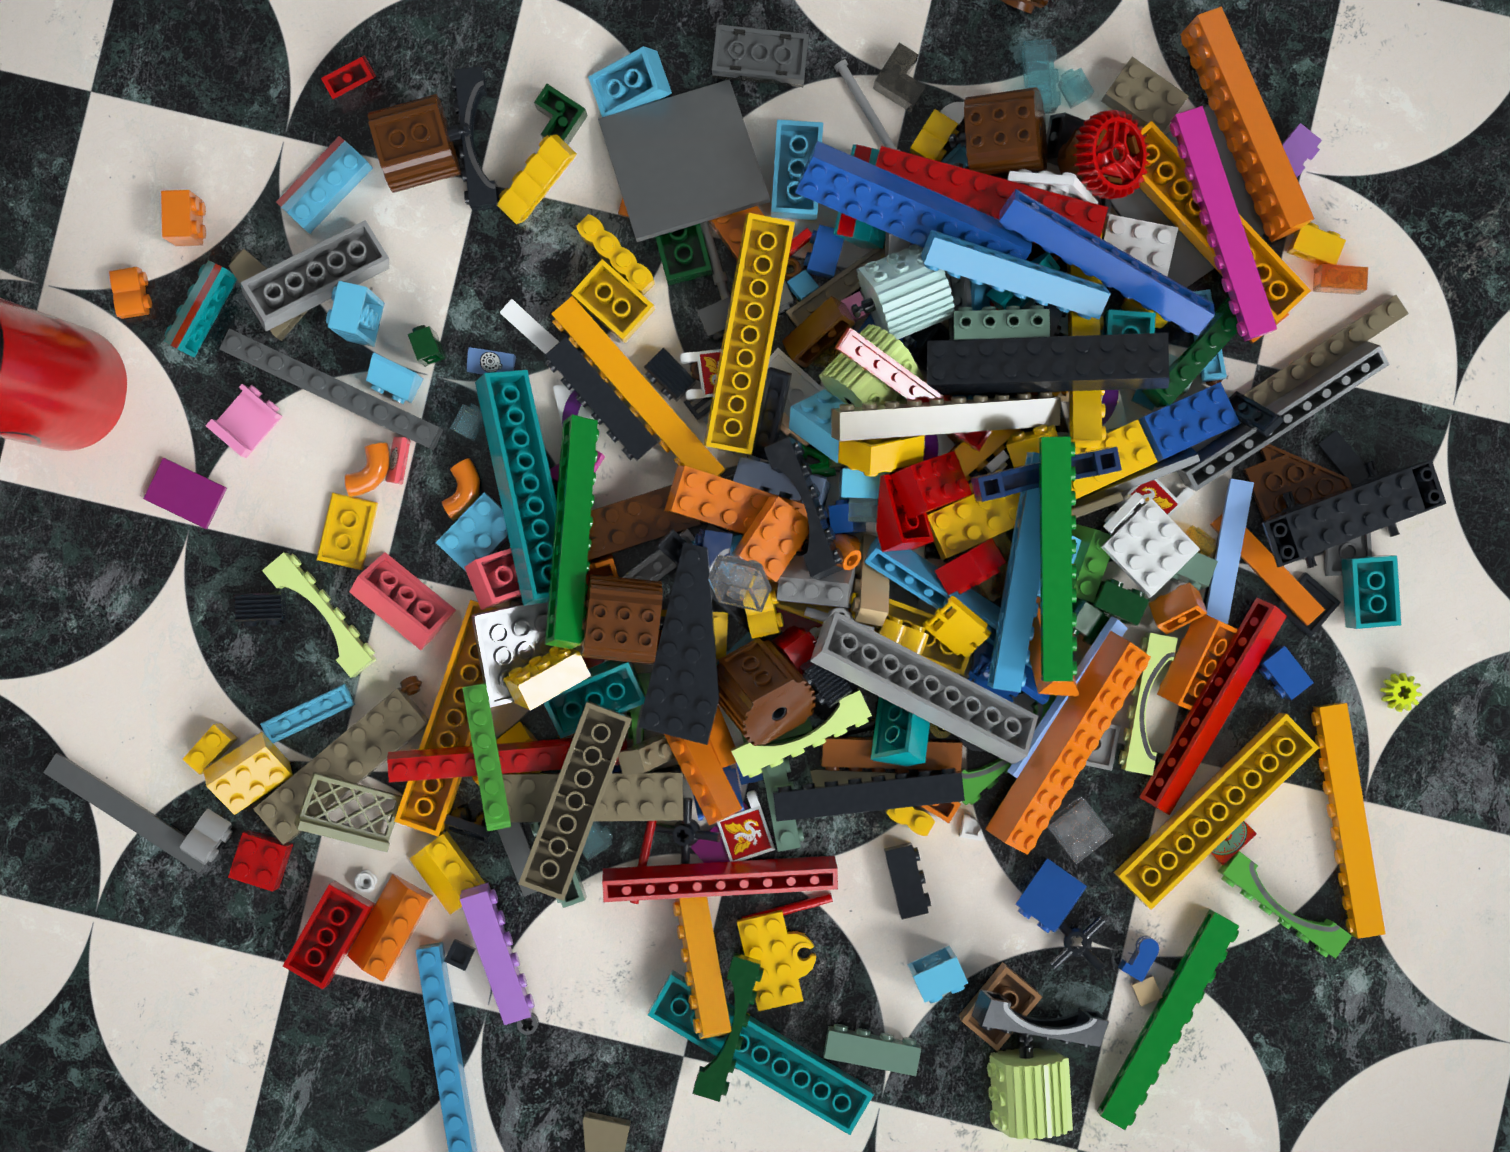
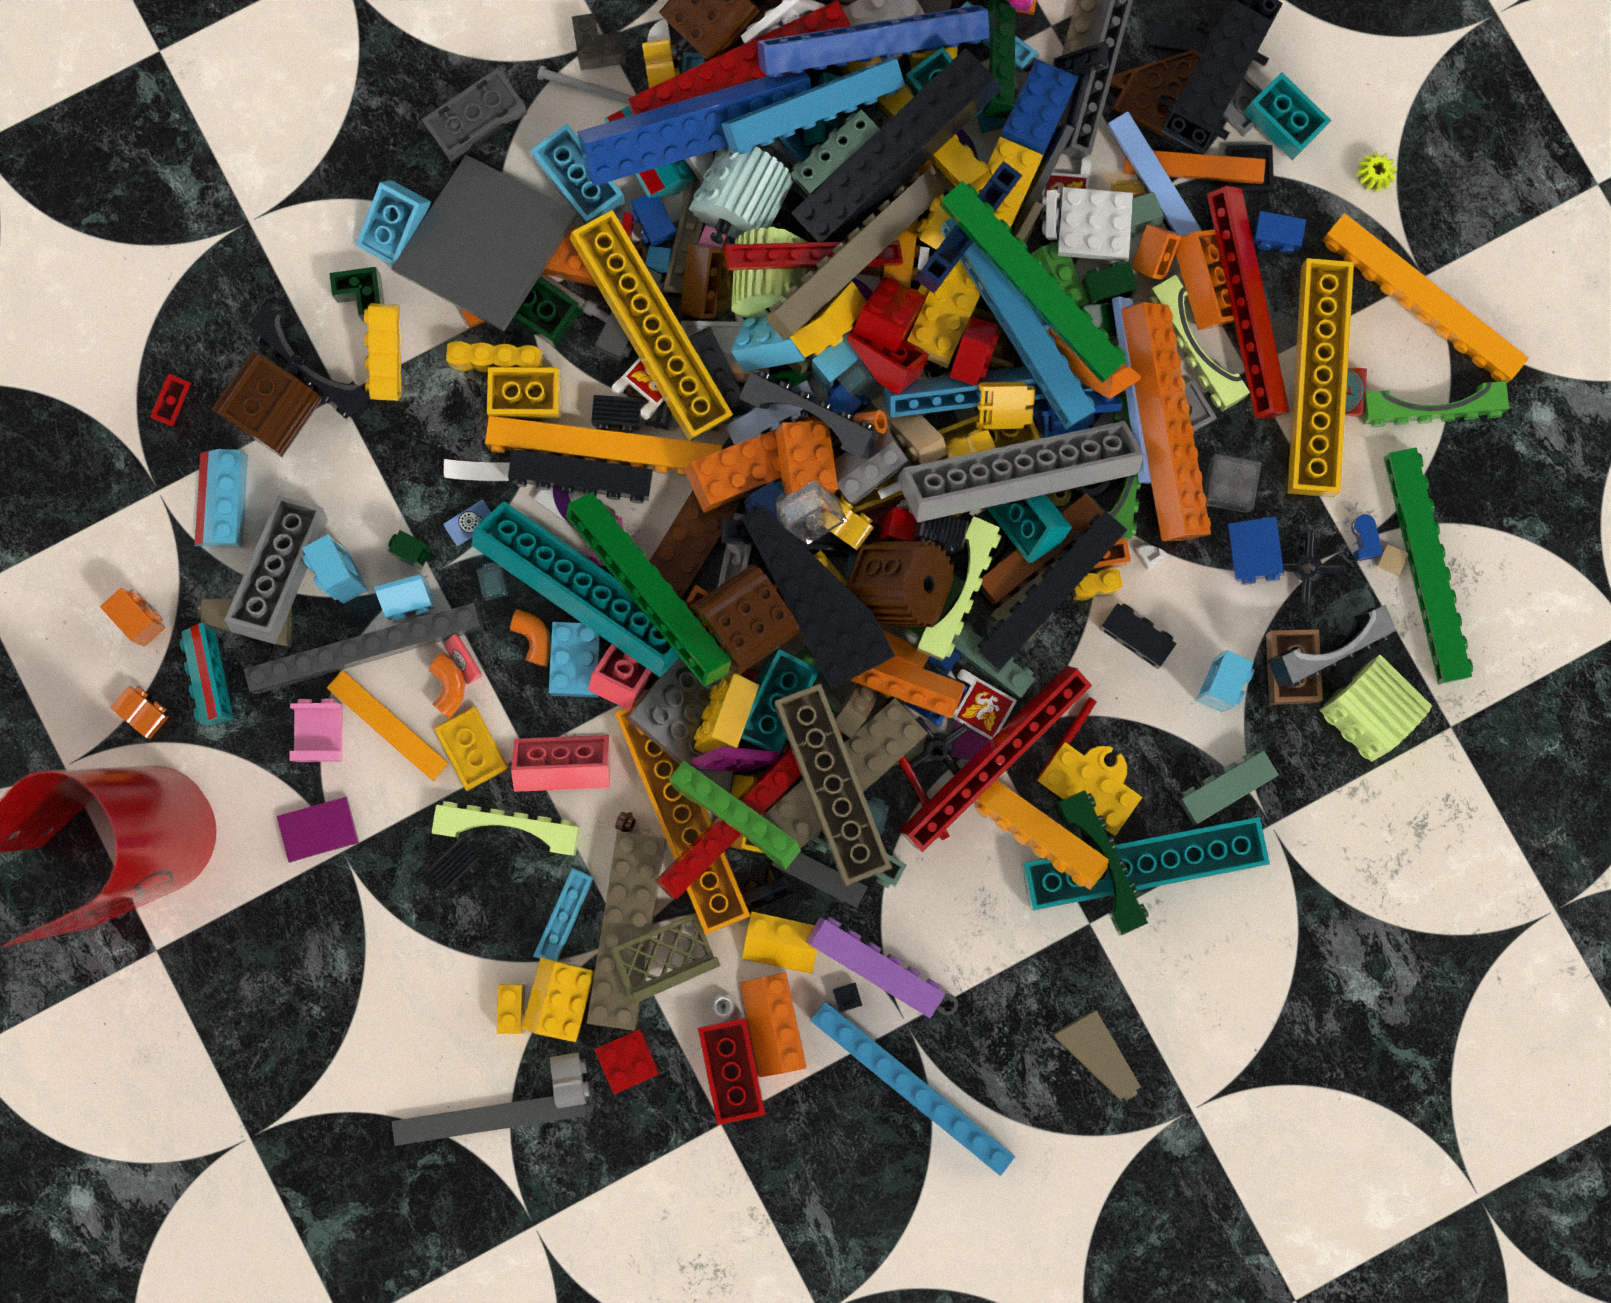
camera: 40 degrees left, 5 degrees down
(301, 461) = (388, 725): none -> light orange tile
(524, 715) = (735, 759): none -> magenta tile

